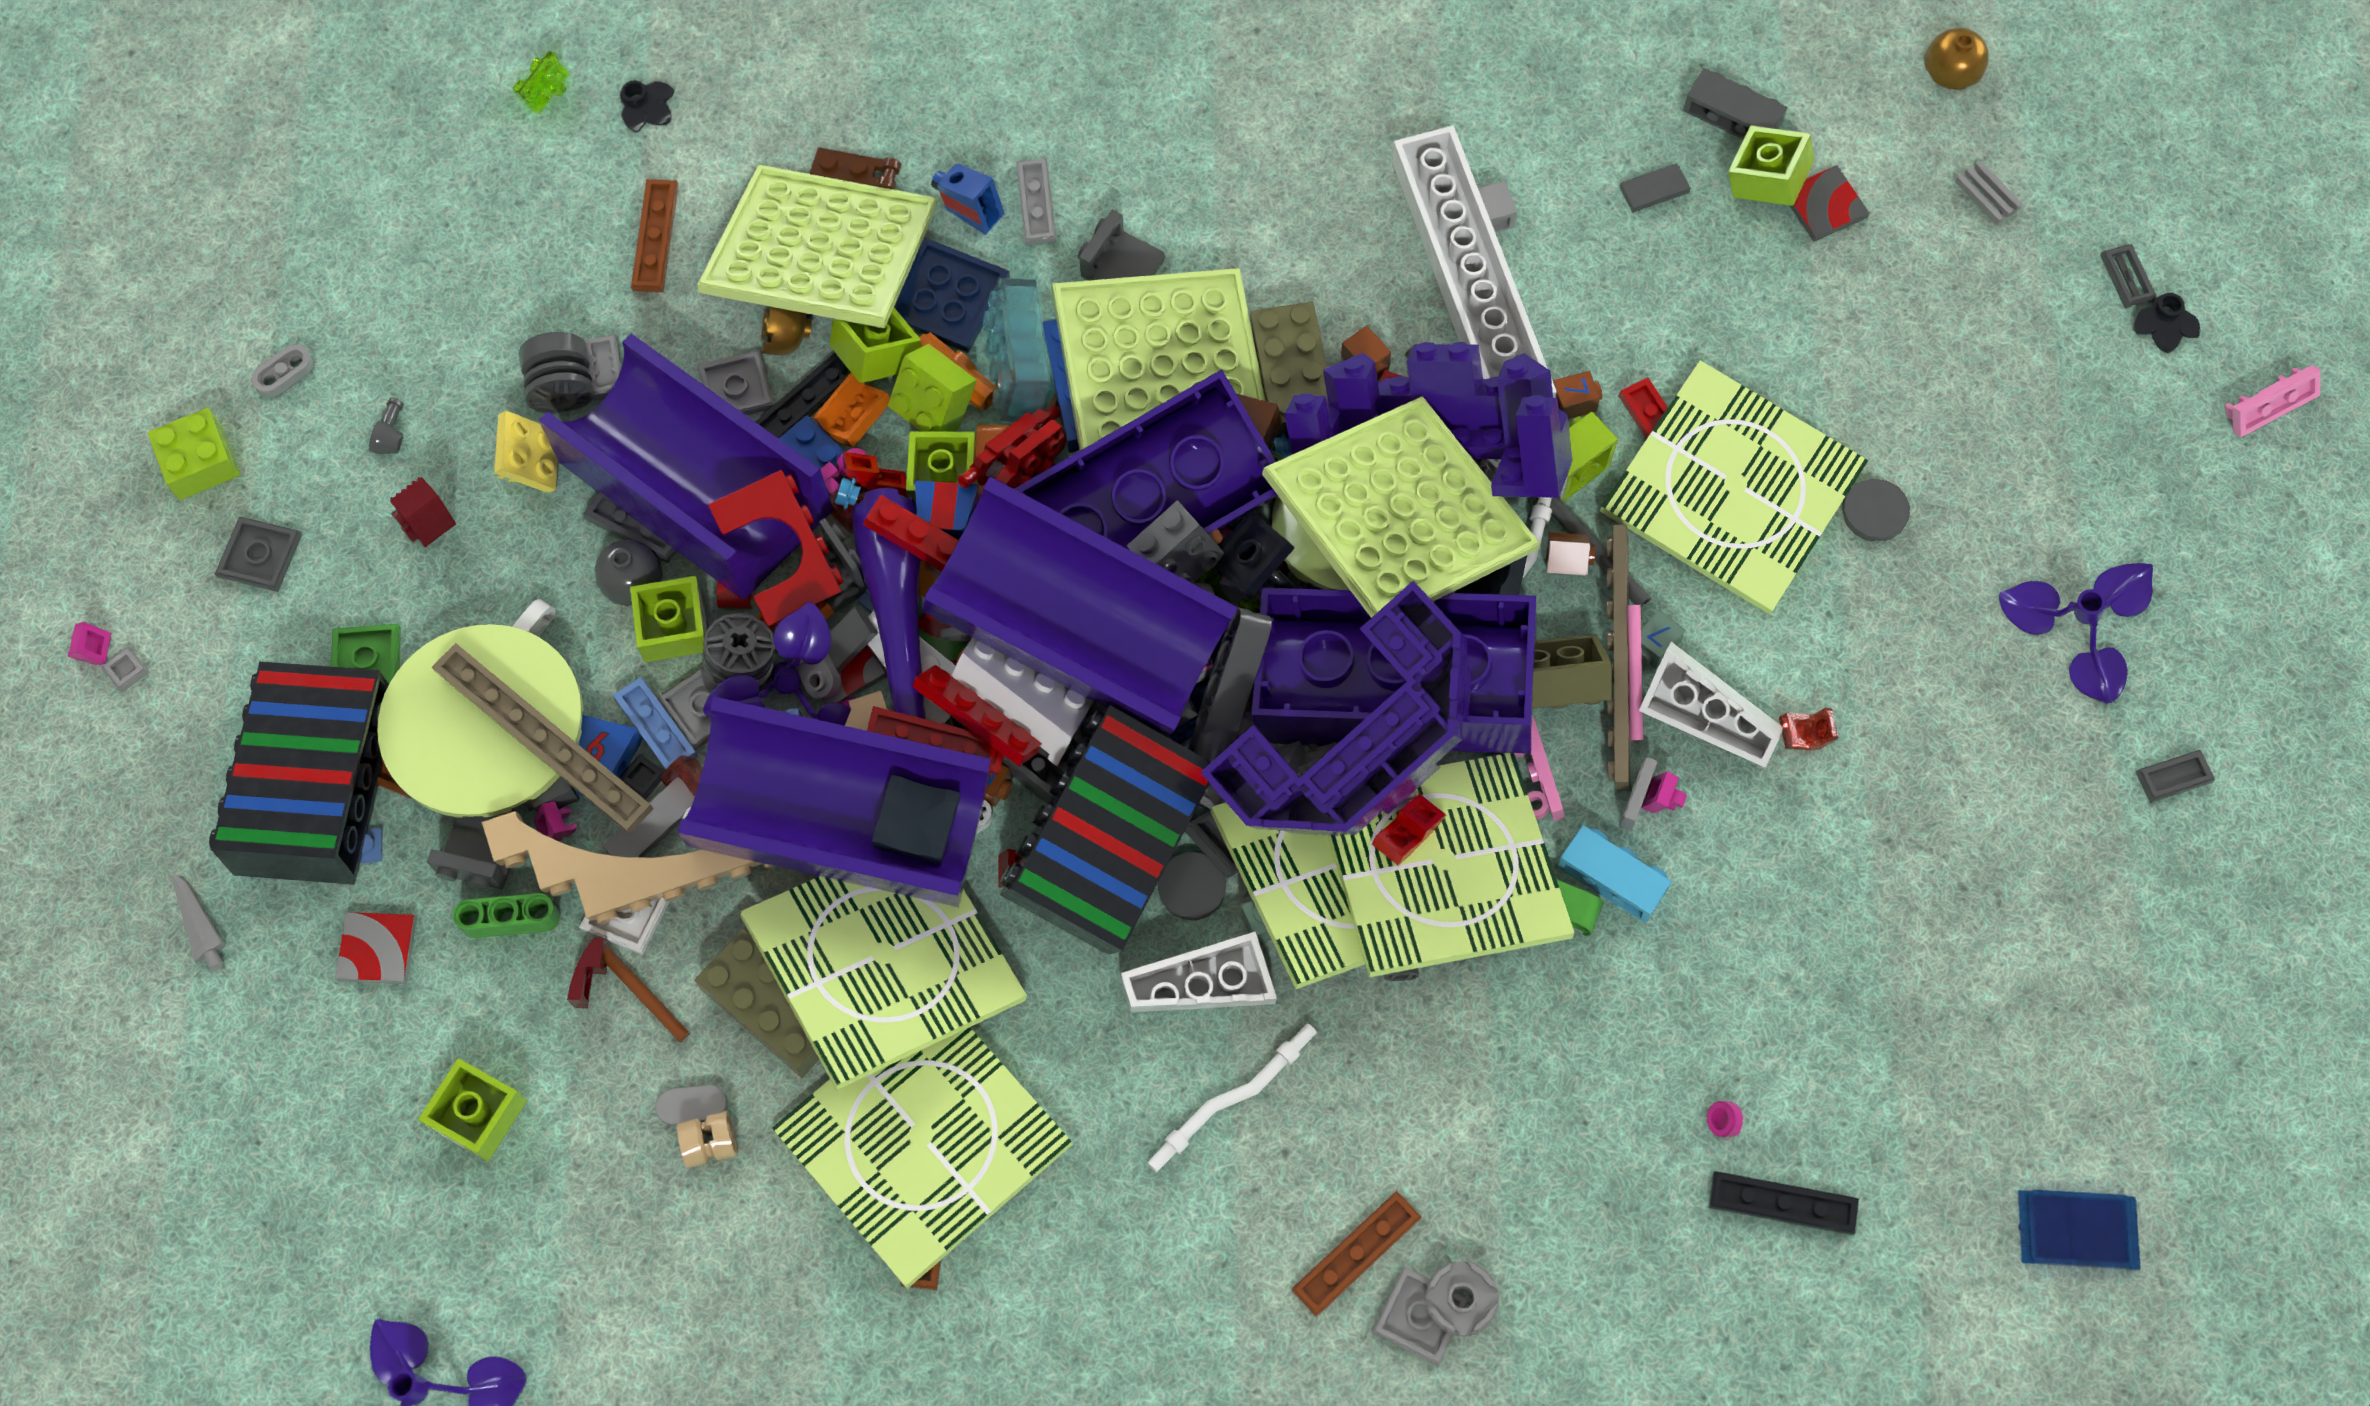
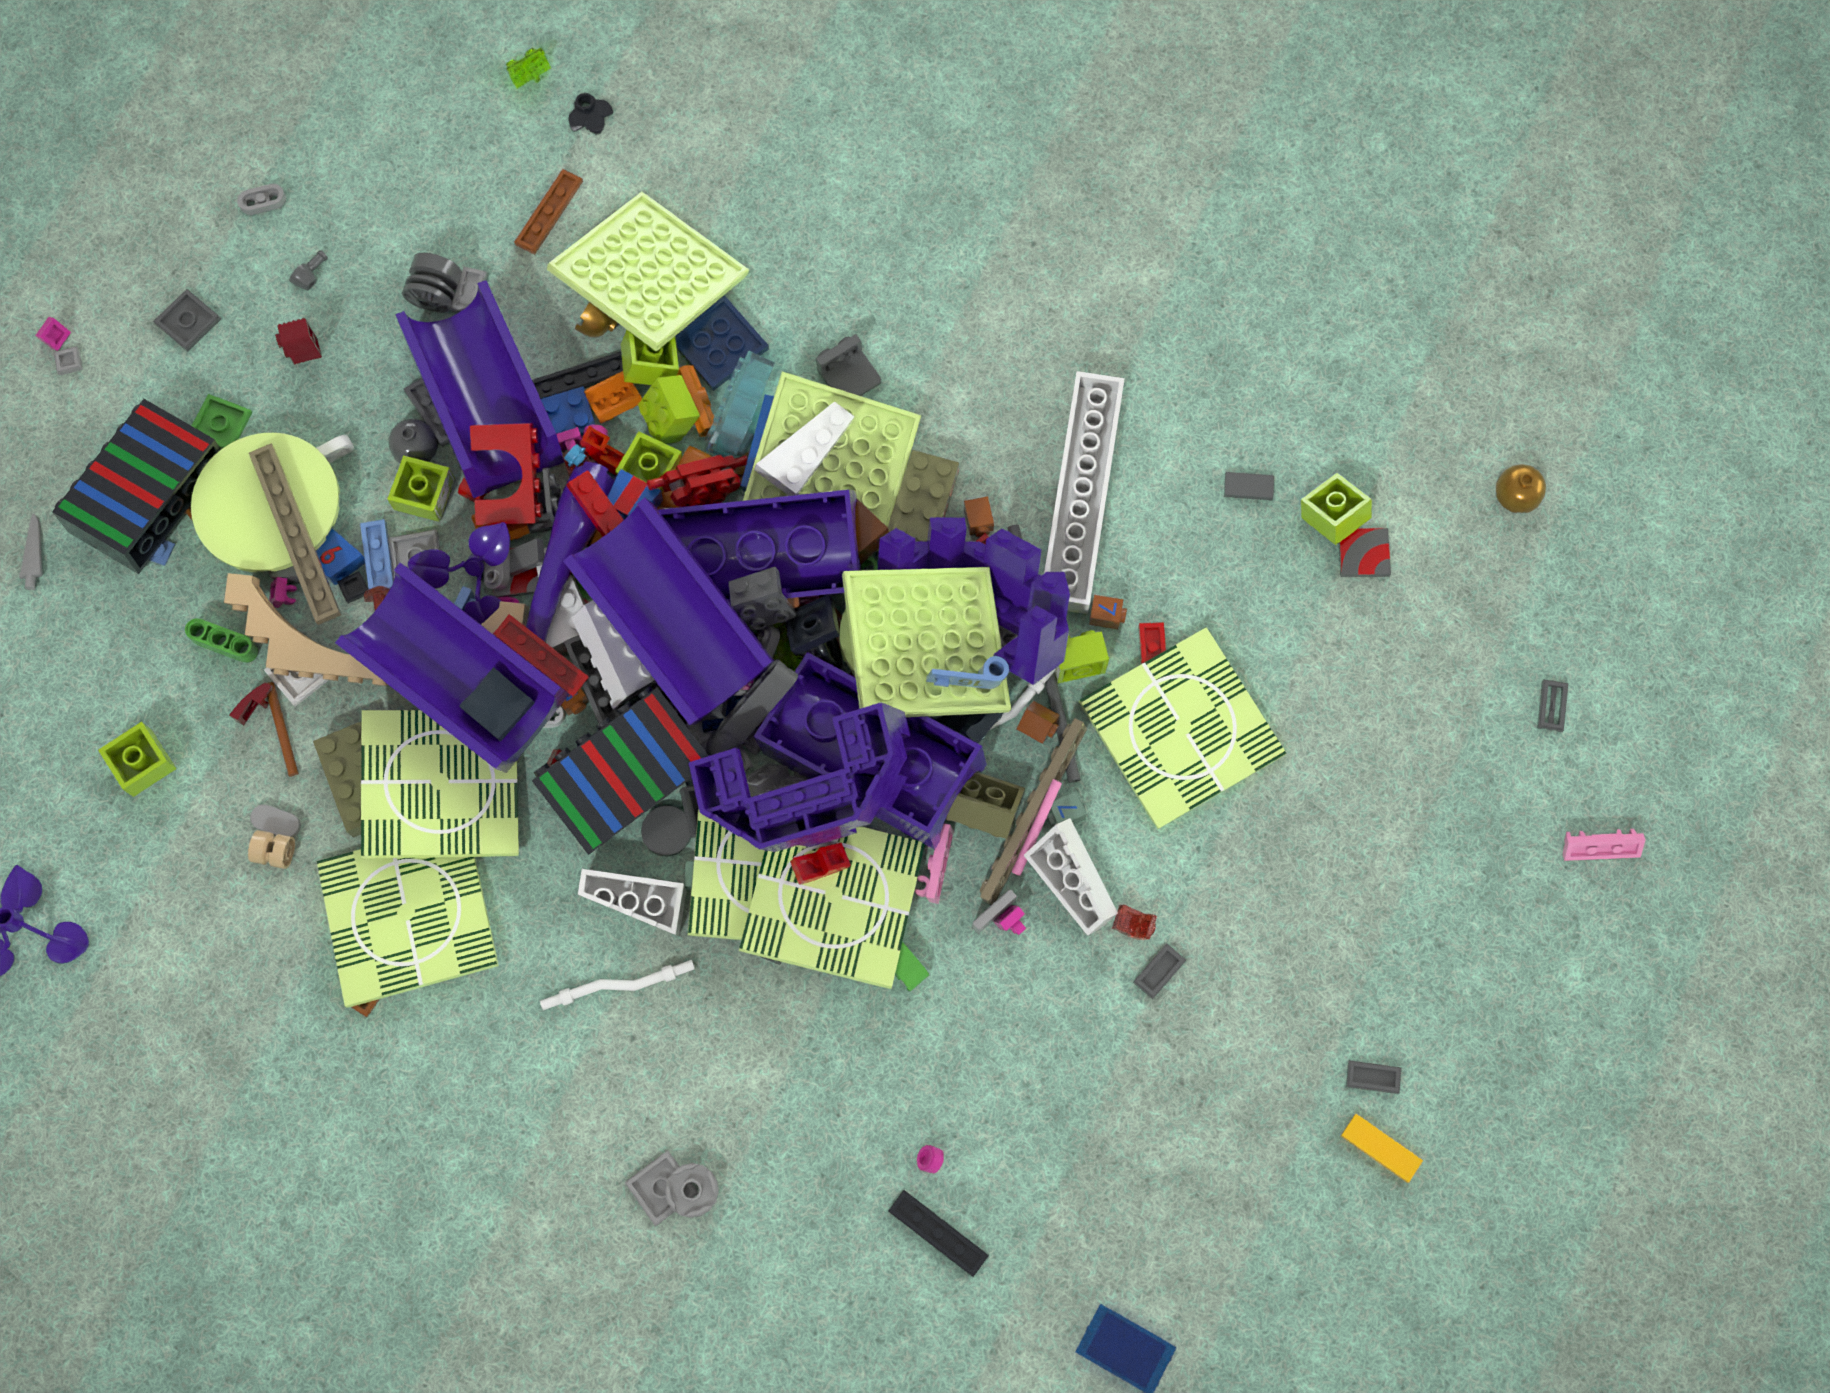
camera: 25 degrees right, 5 degrees up
(193, 453) = (177, 232): lime brick -> none
(376, 948) = (132, 622): tile -> none
(468, 856) = (213, 589): dark grey bracket -> none
(524, 453) = (382, 331): light yellow plate -> none
(666, 815) = (350, 619): light grey tile -> none
(737, 647) = (449, 531): dark grey wheel -> none
(739, 381) = (547, 344): light grey tile -> none
(855, 168) = (705, 223): reddish brown plate -> none
(969, 196) = (765, 272): blue torso -> none
(977, 715) = (576, 650): red plate -> none
(1036, 201) = (815, 302): light grey tile -> none
(1128, 371) = (802, 453): none -> white wedge
(1356, 1254) = (642, 1127): dark orange tile -> none
(1496, 515) = (988, 676): none -> medium blue door
(1499, 205) = (1126, 450): light grey brick -> none
(1614, 873) = (948, 957): medium azure brick -> none
(1732, 105) = (1337, 451): dark grey brick -> none
(1865, 772) = (1159, 971): none -> dark grey tile
(1876, 510) = (1272, 791): dark grey tile -> none
(1994, 191) = (1496, 597): light grey tile -> none
(2123, 588) = (1345, 910): dark purple plant -> none
(2166, 326) = (1557, 756): black plate -> none
(2231, 851) = (1381, 1148): none -> yellow tile

